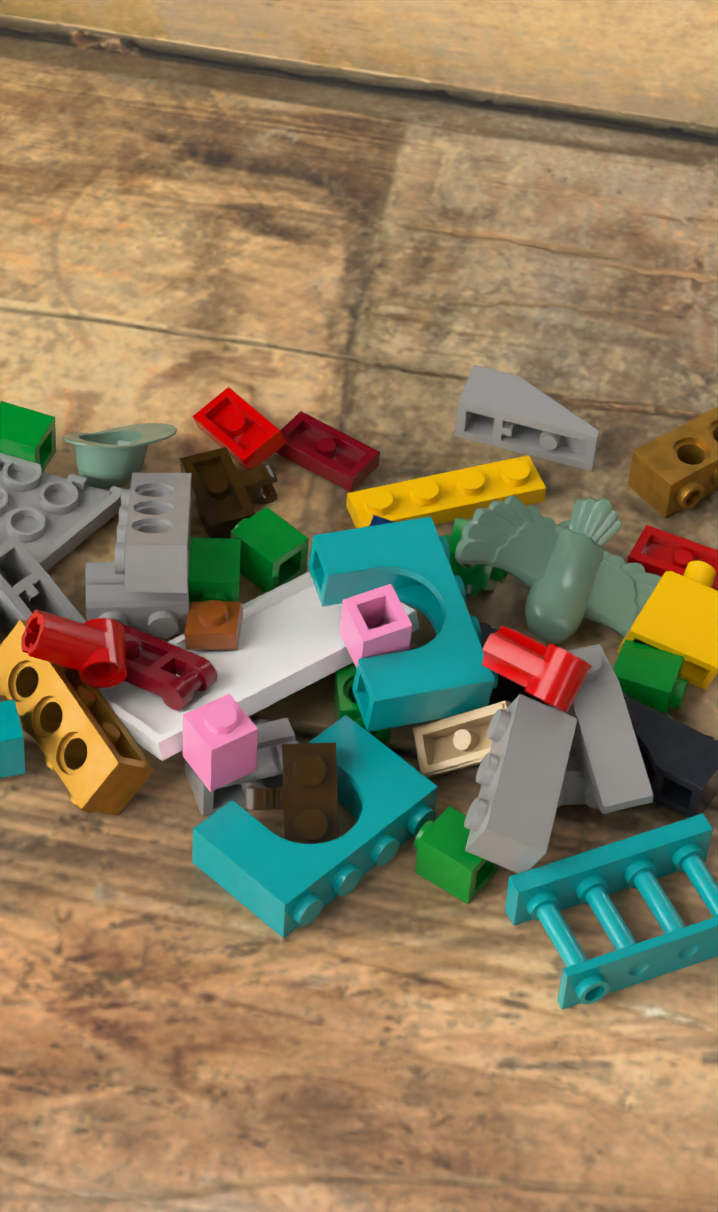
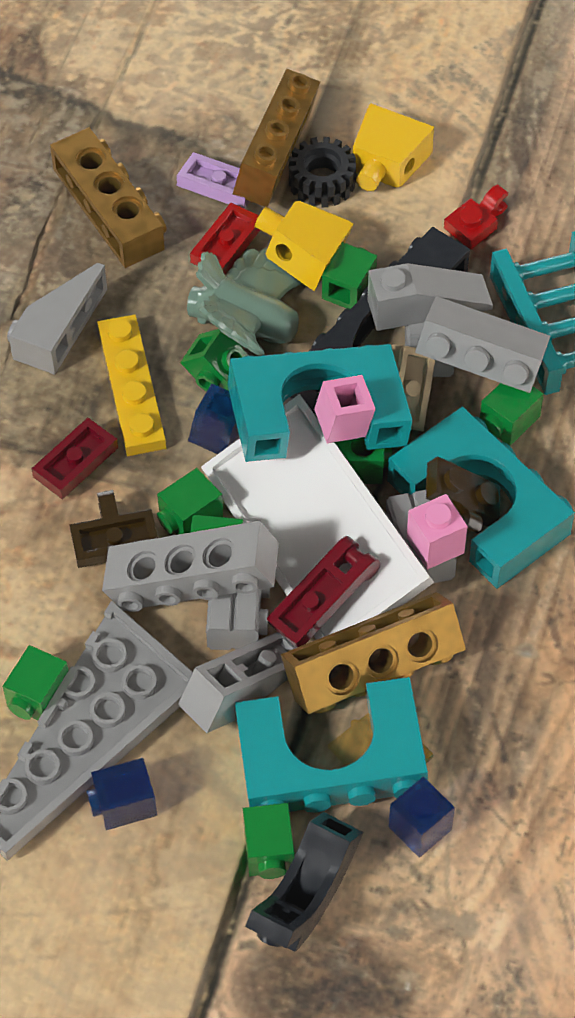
camera: 80 degrees left, 10 degrees up
(91, 647) = (334, 622): red piece -> none
(114, 454) = (60, 600): sand green piece -> none
(213, 625) = (289, 543): dark orange plate -> none
(239, 428) = (46, 514): red plate -> none
(544, 671) = (410, 298): piece -> none

